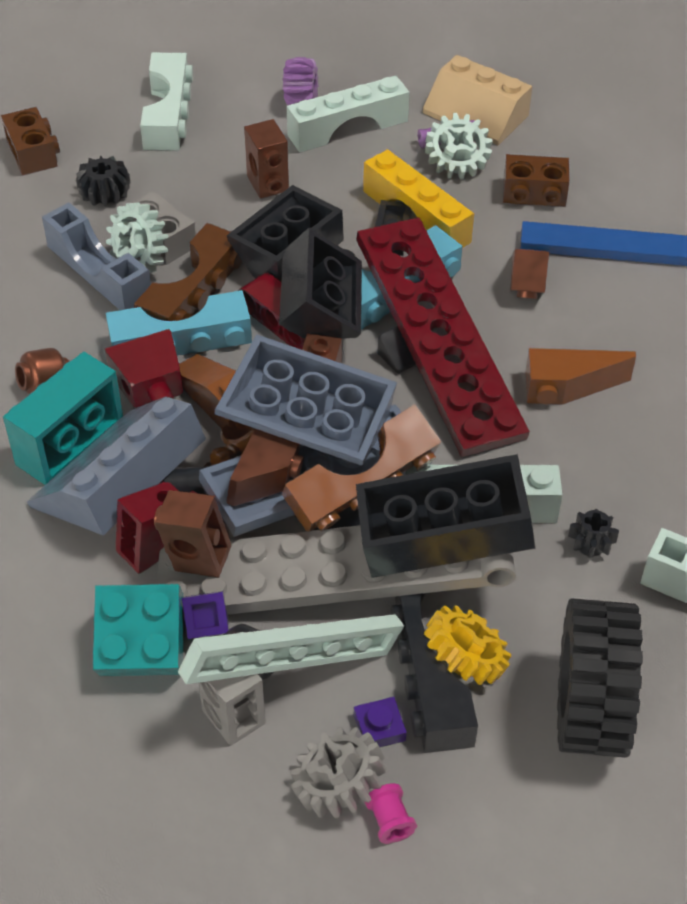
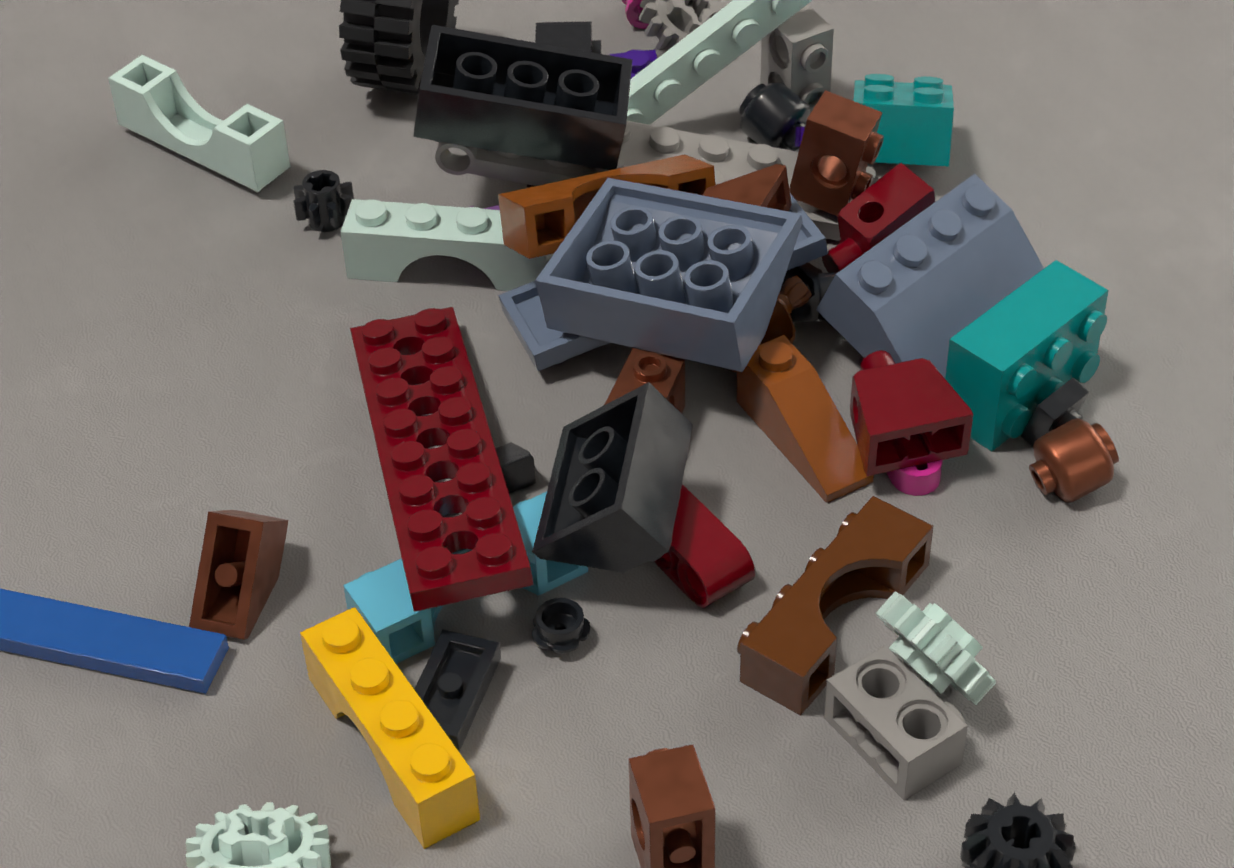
camera: 170 degrees left, 5 degrees down
(74, 241) = (1057, 690): sand blue arch -> none
(218, 325) = (789, 516): medium azure arch -> none
(279, 223) = (647, 638): black slope -> none
(536, 180) = (135, 763): reddish brown brick -> none
(571, 374) = (249, 392): dark orange slope -> none

